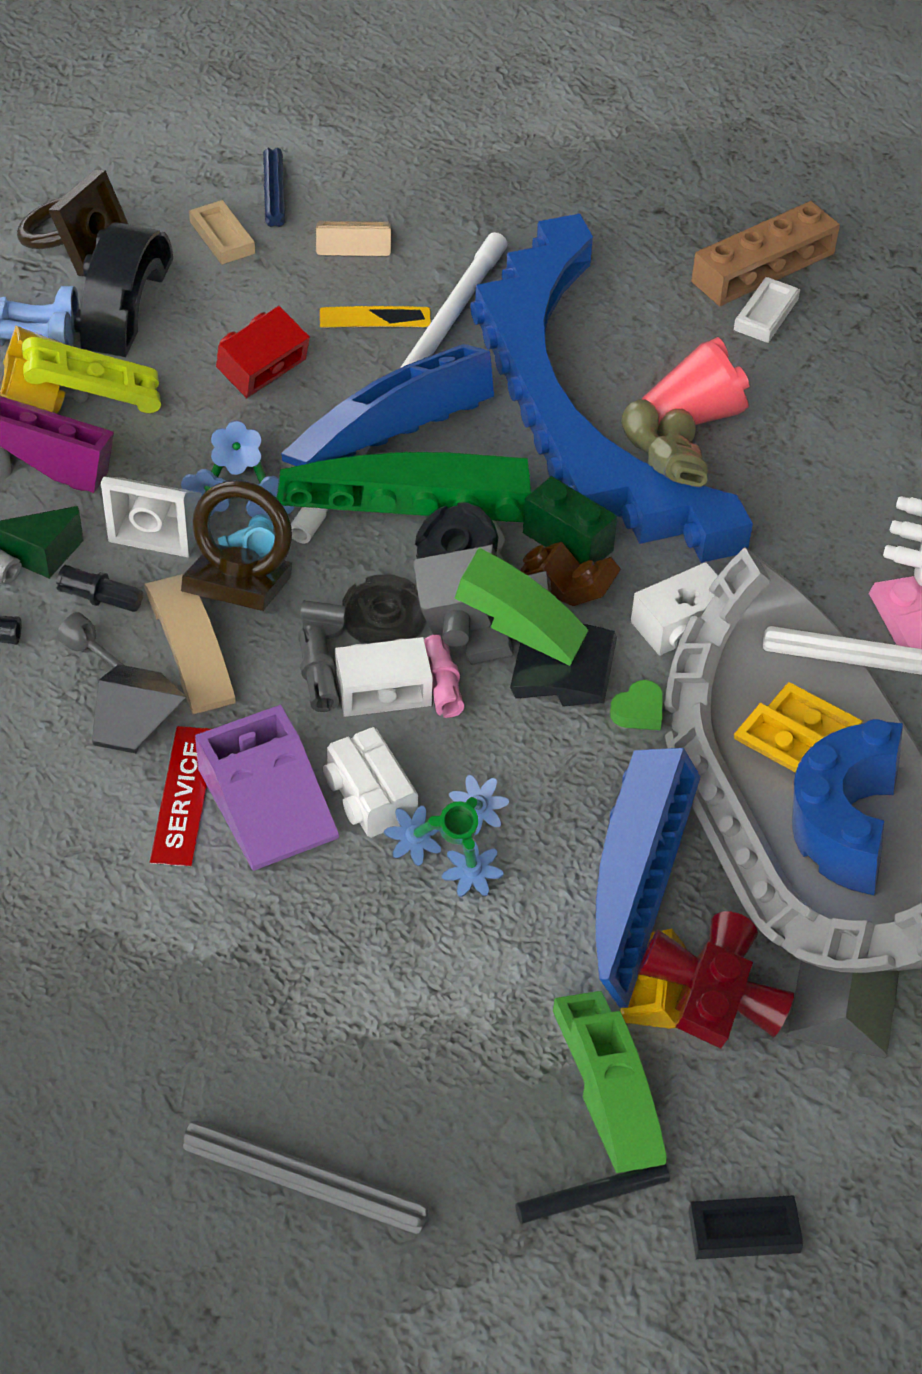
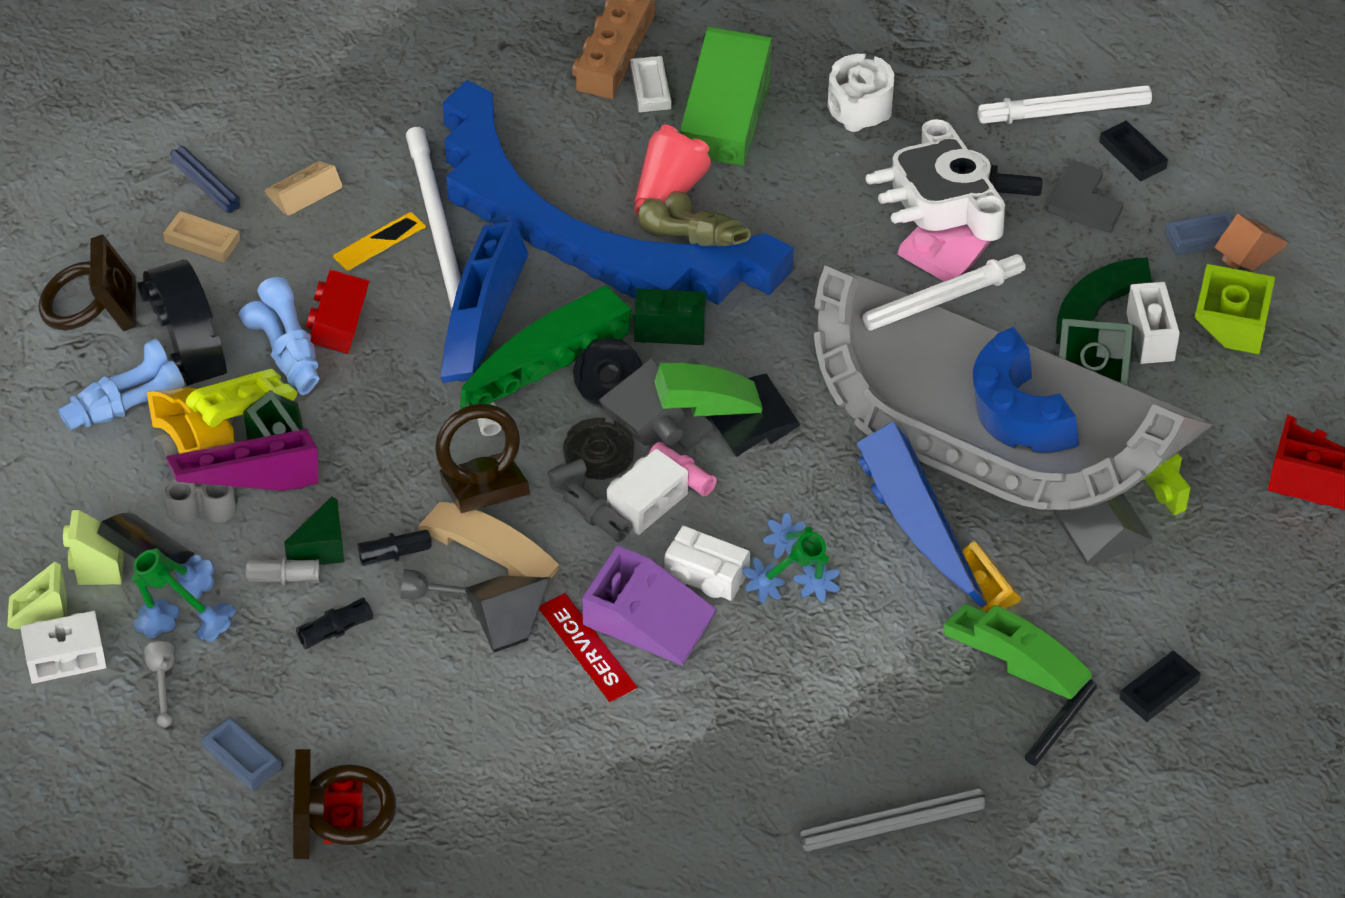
camera: 35 degrees left, 0 degrees up
(115, 409) = (272, 416): none -> dark green slope
(149, 515) = (384, 473): white slope -> none
(190, 358) = (290, 351): none -> light blue piece
(236, 449) = (419, 391): medium blue plant -> none
(257, 536) = (477, 446): medium azure piece -> none
(569, 579) = (713, 351): reddish brown slope -> none
(638, 707) = (822, 415): bright green tile -> none
(666, 607) = (790, 336): white brick -> none
(717, 981) = (1030, 554): dark red brick -> none
(791, 725) = (939, 370): yellow slope -> none
(824, 351) = (728, 93): none -> bright green slope

